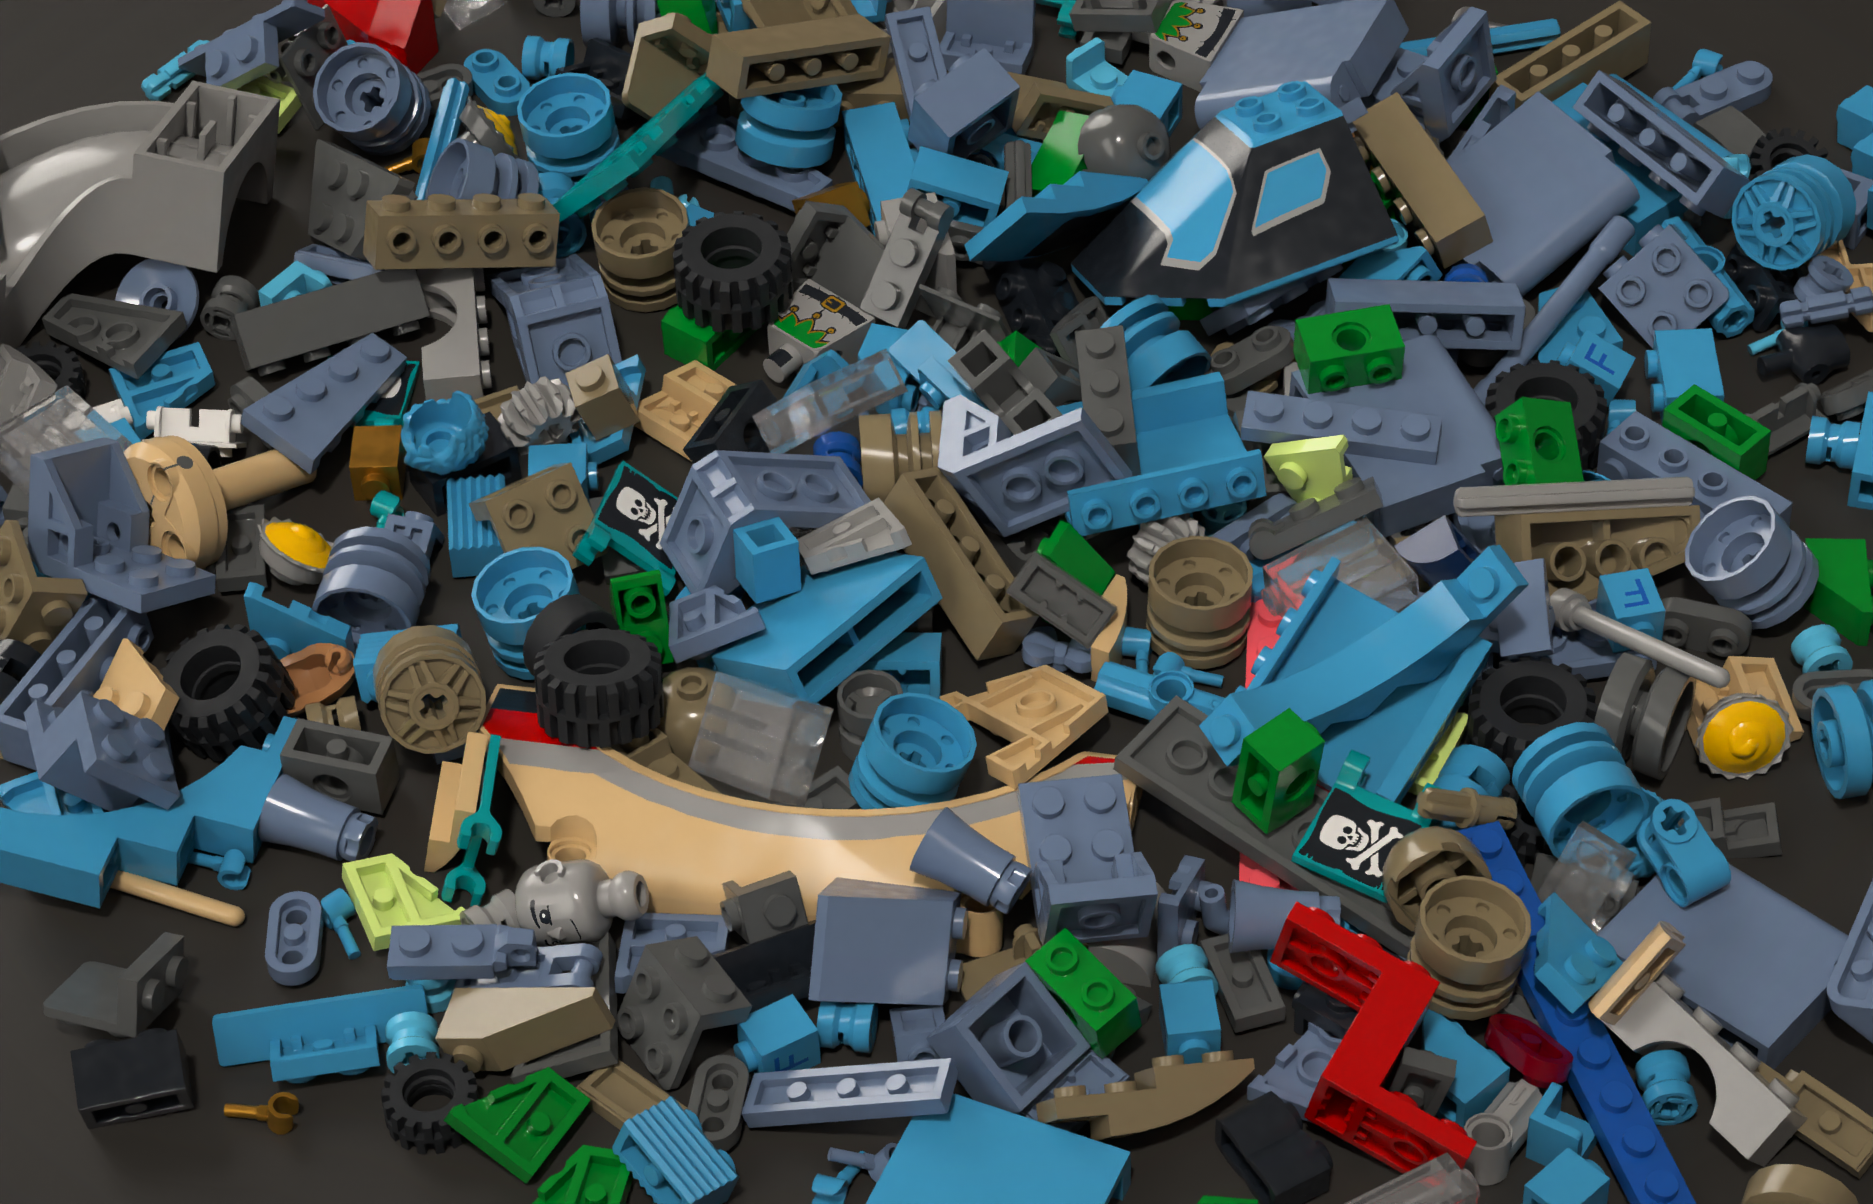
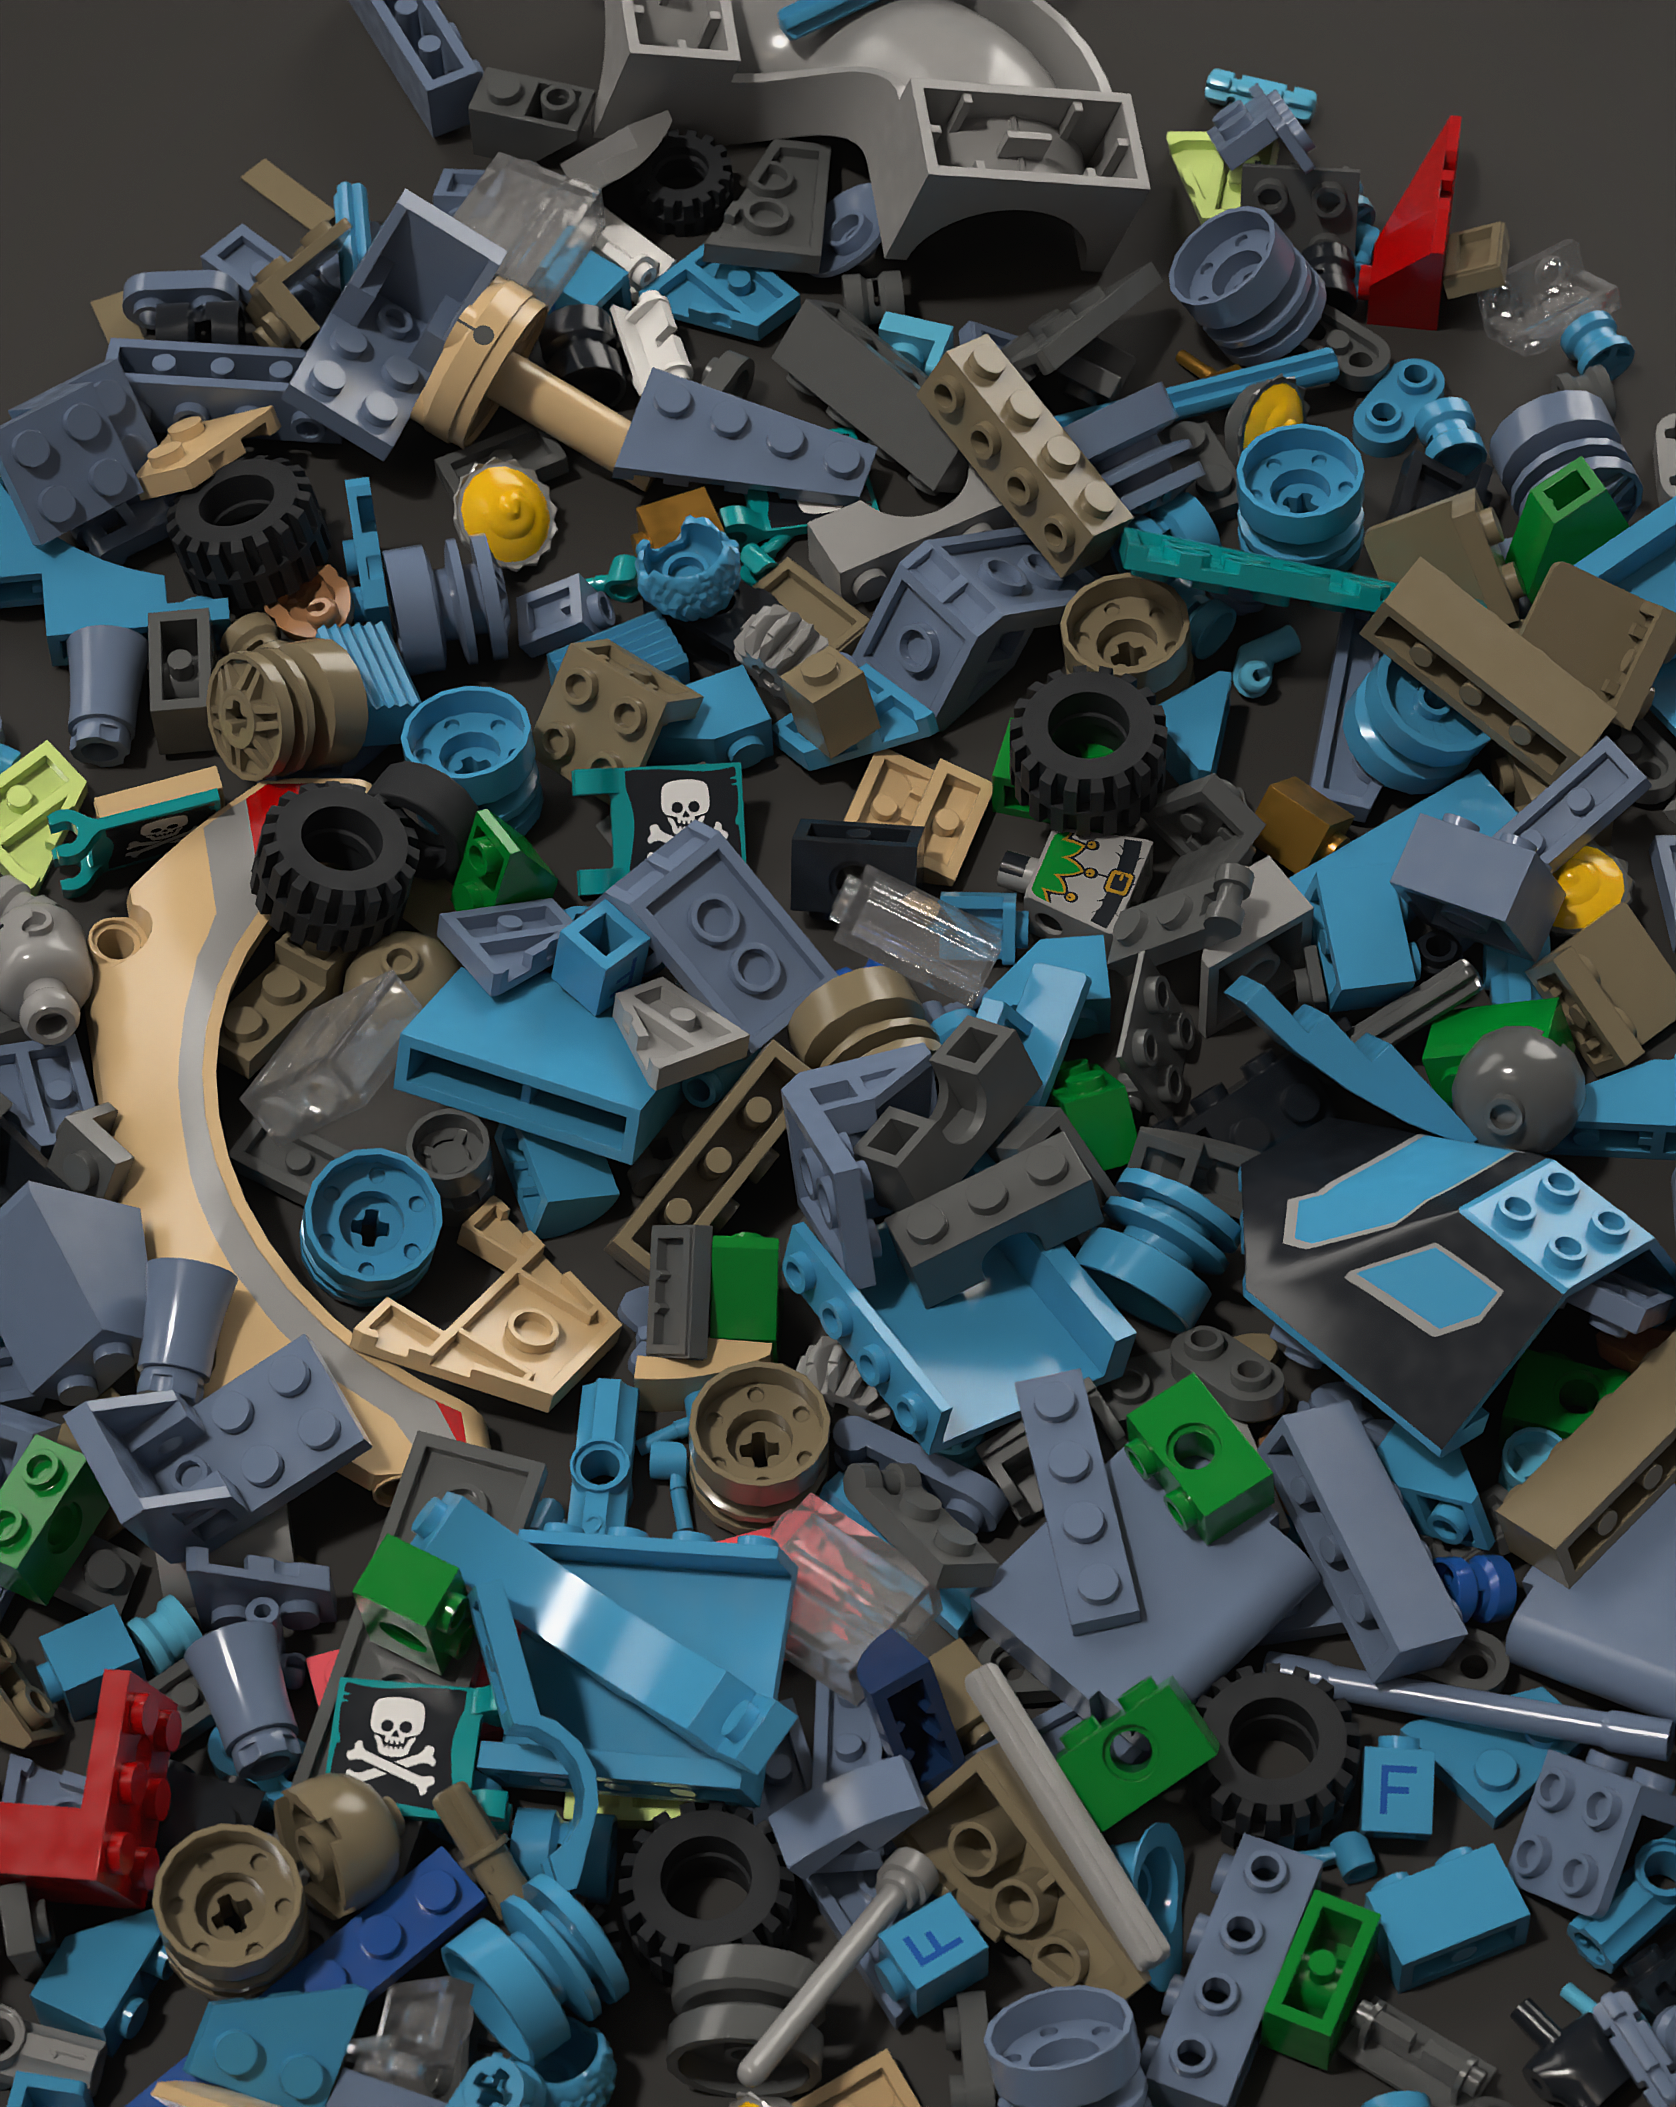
camera: 70 degrees right, 10 degrees up
(231, 867) = (30, 649): dark azure hand -> none
(1310, 466) = (1002, 1496): yellowish green wing -> none
(1389, 726) = (522, 1718): none -> dark azure piece
(1528, 1049) = (140, 2046): dark red plate -> none

